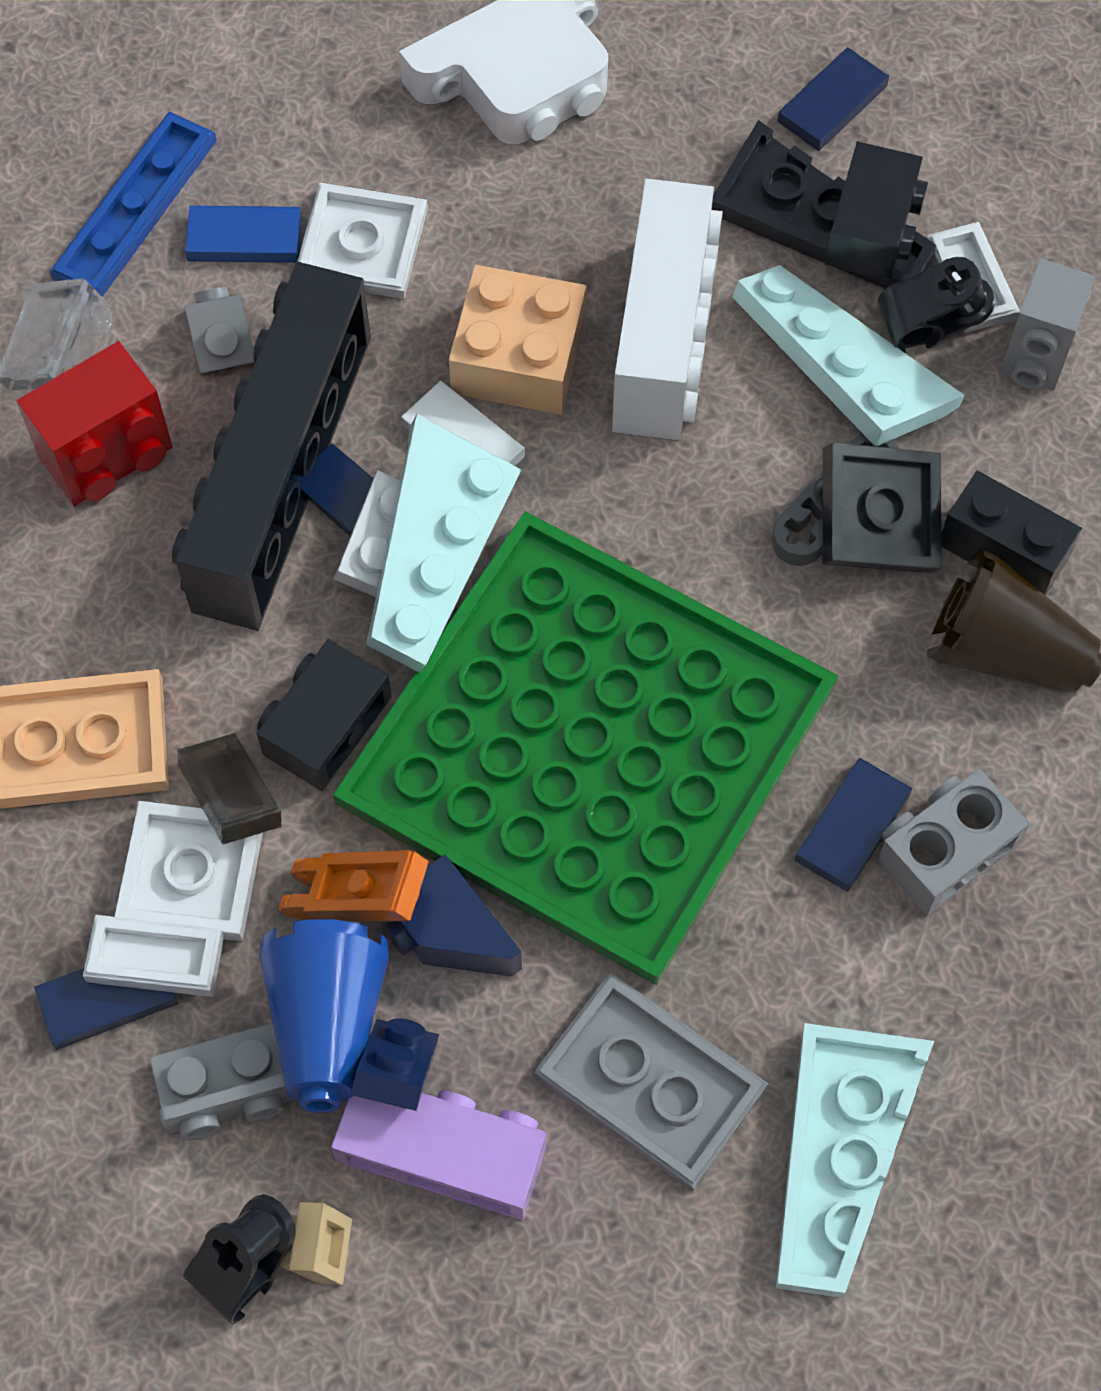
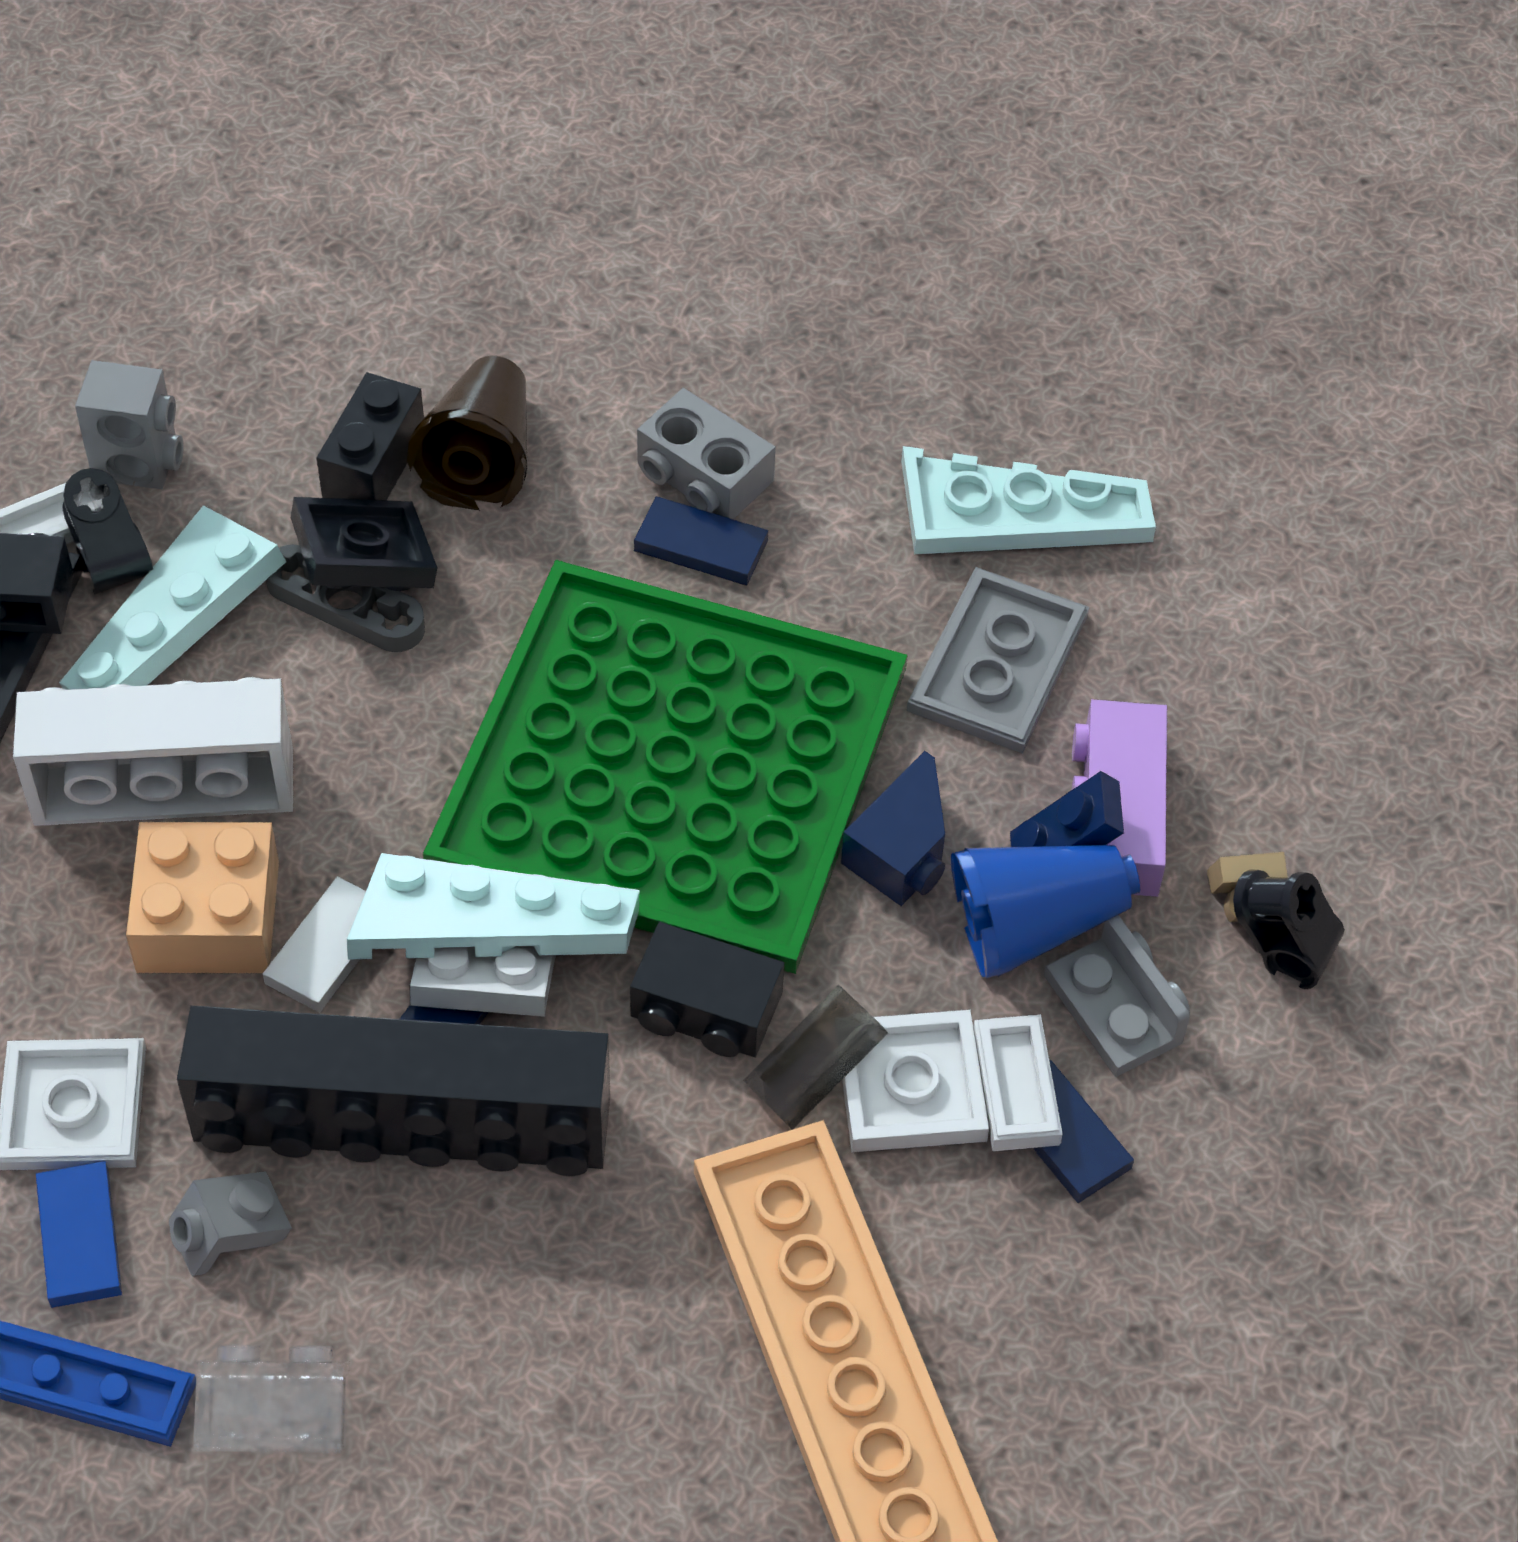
camera: 105 degrees left, 10 degrees down
(96, 424) = (408, 1283): red brick -> none
(357, 886) = (904, 893): orange hinge -> none

